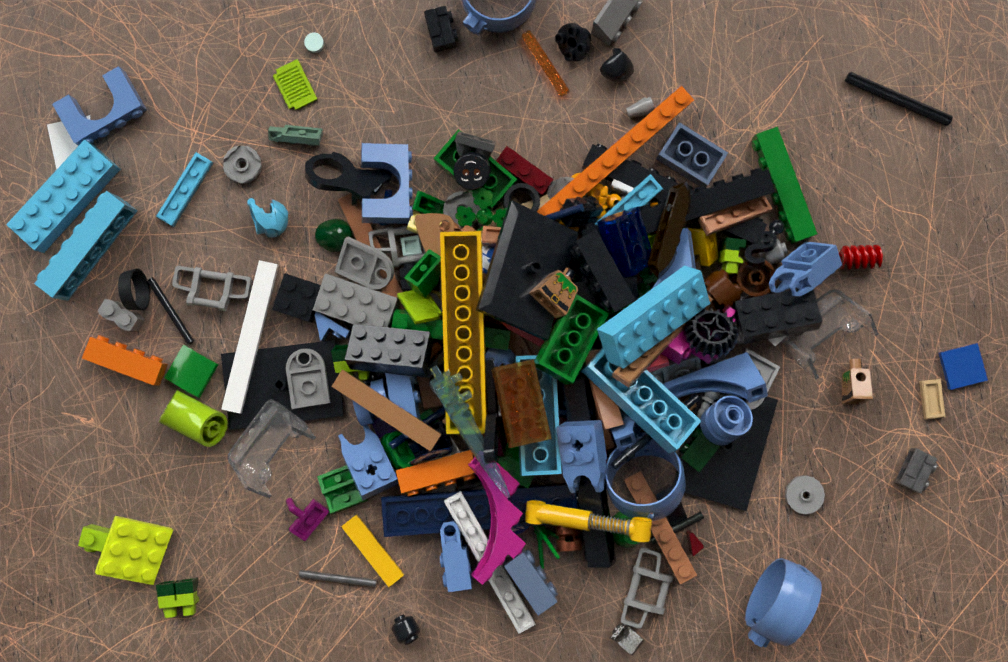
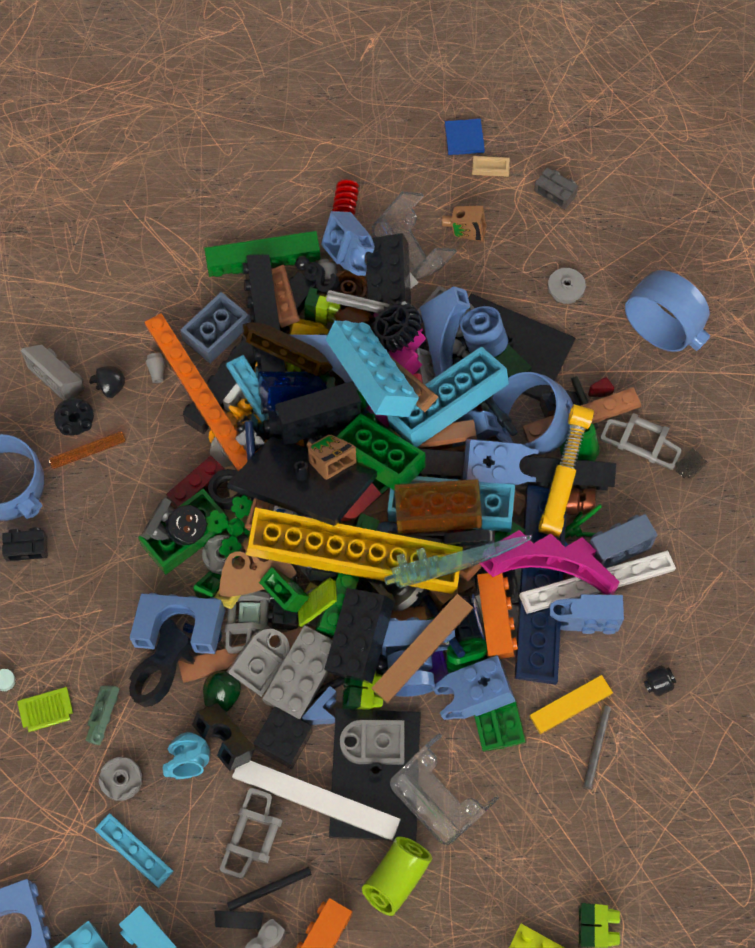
camera: 85 degrees left, 20 degrees down
(191, 371) = (342, 873): green slope -> none
(301, 235) = (215, 722): none -> black arch
(307, 519) = (527, 766): magenta plate -> none
(736, 290) = (355, 301): none -> light grey axle
(898, 98) = (200, 148): black axle -> none

